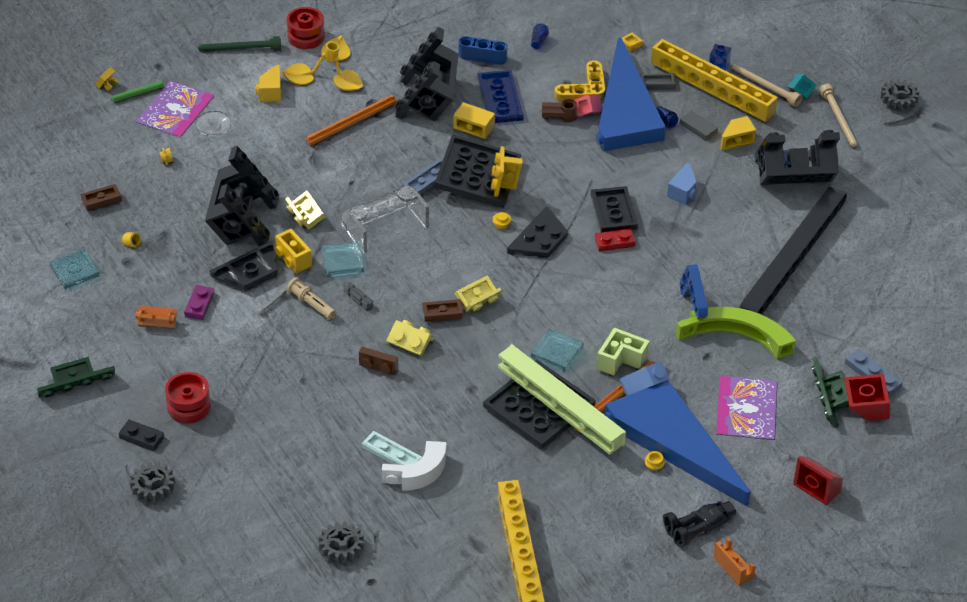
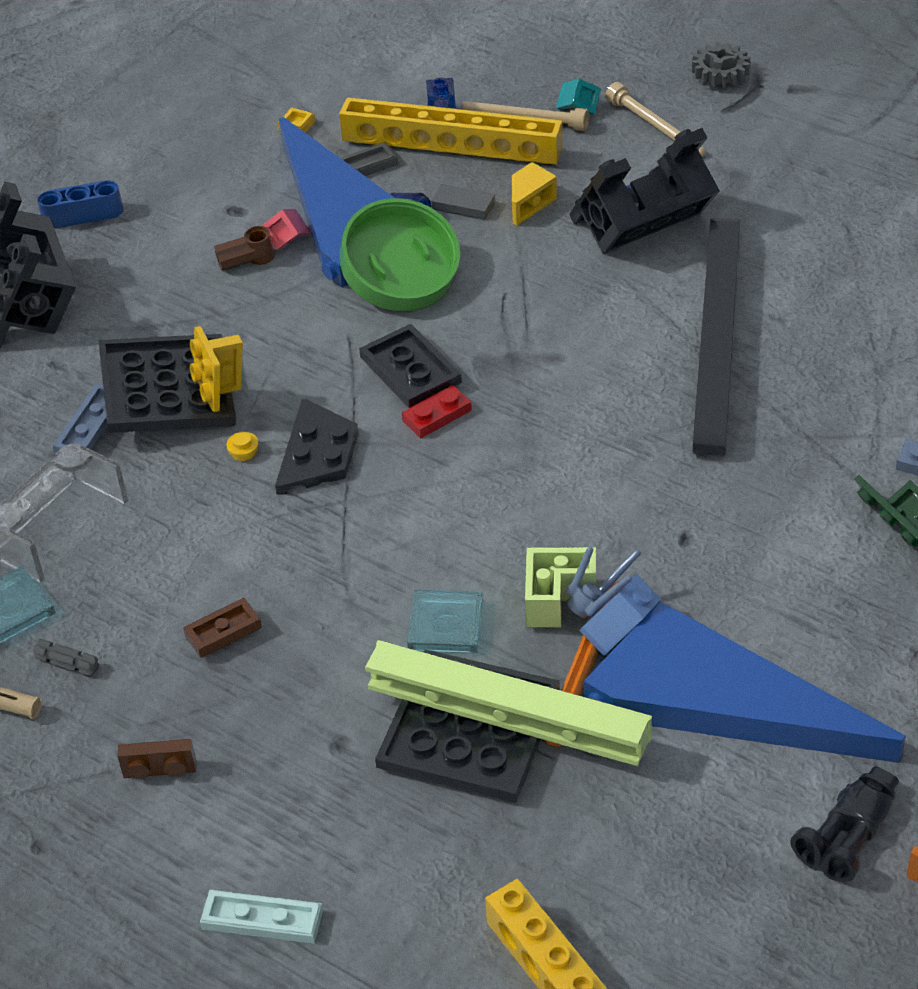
camera: 20 degrees left, 0 degrees up
(409, 337) = (190, 695): light yellow bracket -> none
(420, 473) = (333, 937): white arch -> none
(474, 120) = (120, 309): yellow brick -> none
(477, 294) = (267, 577): light yellow bracket -> none
(500, 95) = (141, 262): clear blue tile -> none
(539, 35) = (155, 154): clear blue cone -> none
(563, 91) = (238, 221): yellow beam -> none
(633, 364) = (588, 598): none -> sand blue plant
(640, 144) = (399, 254): none -> bright green piece
(654, 461) = (712, 746): yellow plate -> none
(683, 185) = (495, 293): medium blue slope -> none
(692, 285) = (608, 424): blue beam -> none
(742, 322) = (711, 464): lime arch -> none
(746, 407) = (796, 597): sticker -> none

